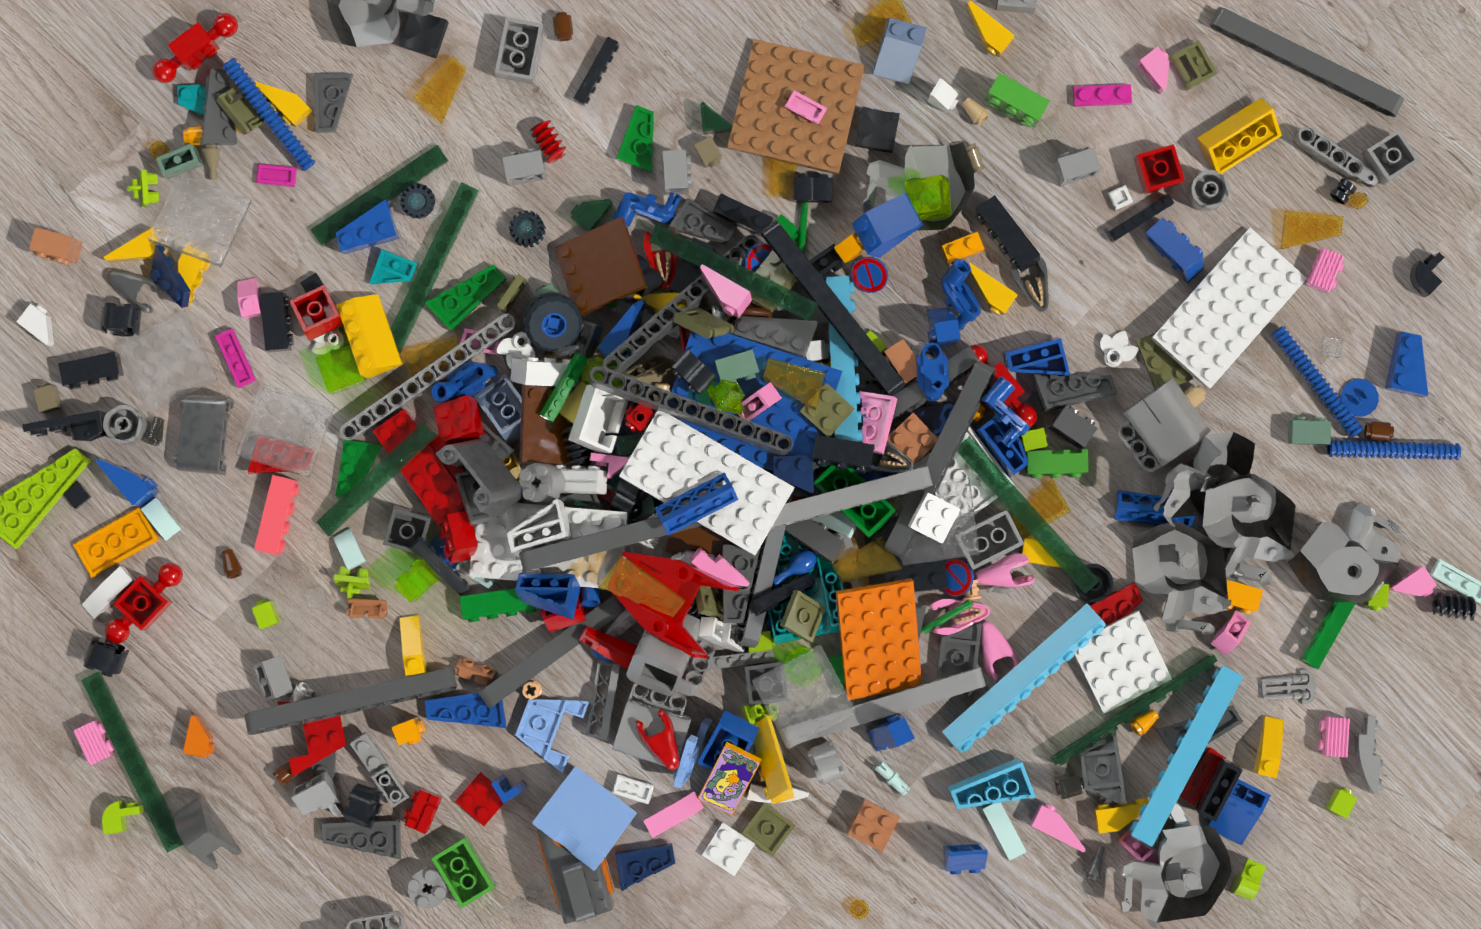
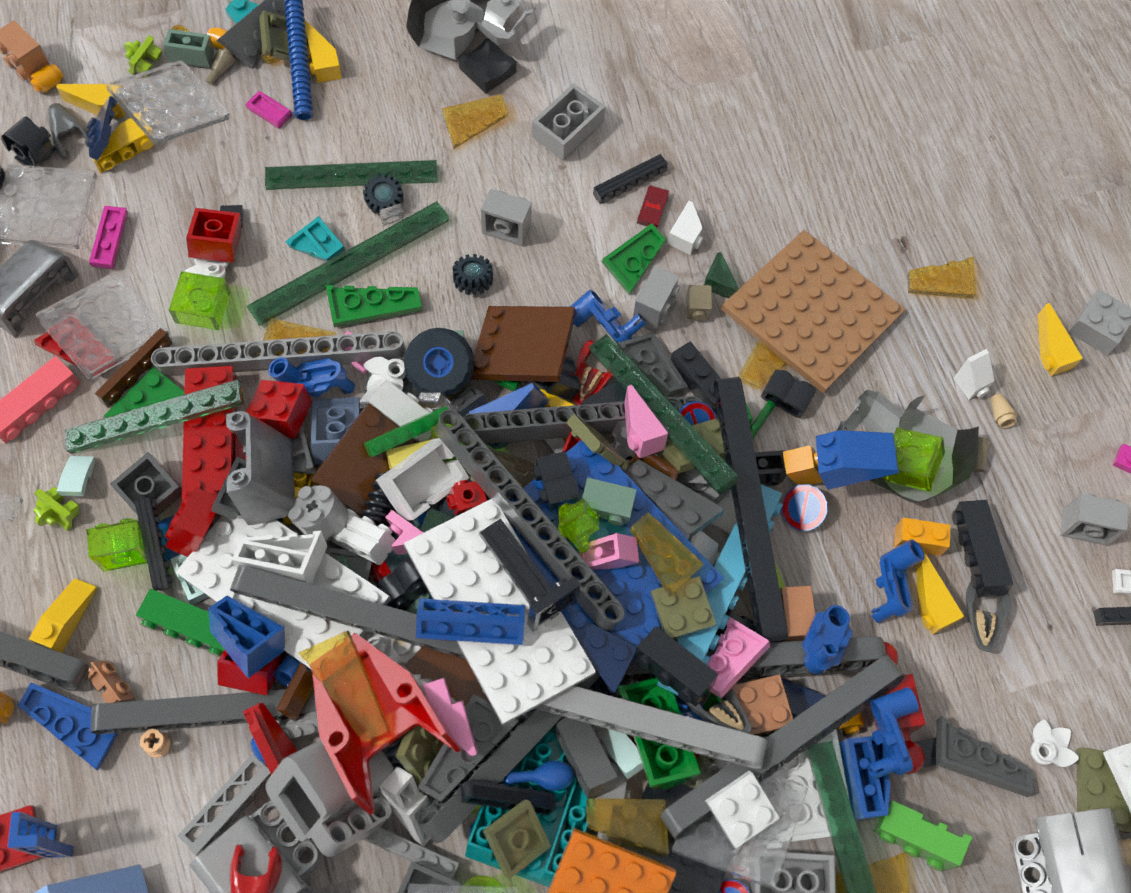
camera: 25 degrees right, 20 degrees down
(86, 253) = (46, 78): none -> light orange brick
(249, 298) = (161, 195): bright pink slope -> none
(276, 322) = (169, 226): black brick -> none
(330, 98) = (363, 74): dark grey wing -> none
(331, 457) = (130, 371): none -> reddish brown plate
(368, 230) = (318, 194): blue wedge -> none
(369, 335) = (248, 282): yellow slope -> none
(374, 608) = (50, 546): nougat hinge -> none
(507, 299) = (417, 319): olive plate -> none
(541, 724) = (136, 791): light blue wing -> none
(548, 142) = (545, 211): red piece -> none
(563, 26) = (622, 126): reddish brown brick -> none
(590, 213) = (547, 292): clear green slope -> none
(605, 607) = (296, 693): none -> reddish brown tile
(627, 85) = (653, 206): none -> dark red tile
(665, 93) = (686, 231): none -> white slope
(713, 452) = (543, 600): none -> black bracket
(765, 643) = (452, 847): lime brick -> none
(805, 107) = (824, 309): bright pink tile -> none
(877, 130) = (887, 372): black brick -> none
(899, 50) = (950, 310): slope -> none
(943, 327) = (863, 605): blue wedge -> none
(1016, 100) = (1056, 419): bright green brick -> none
(1034, 440) = (906, 791): lime brick -> none
(1038, 357) = (956, 700): blue wedge -> none
(1073, 427) = (961, 803): dark grey brick -> none

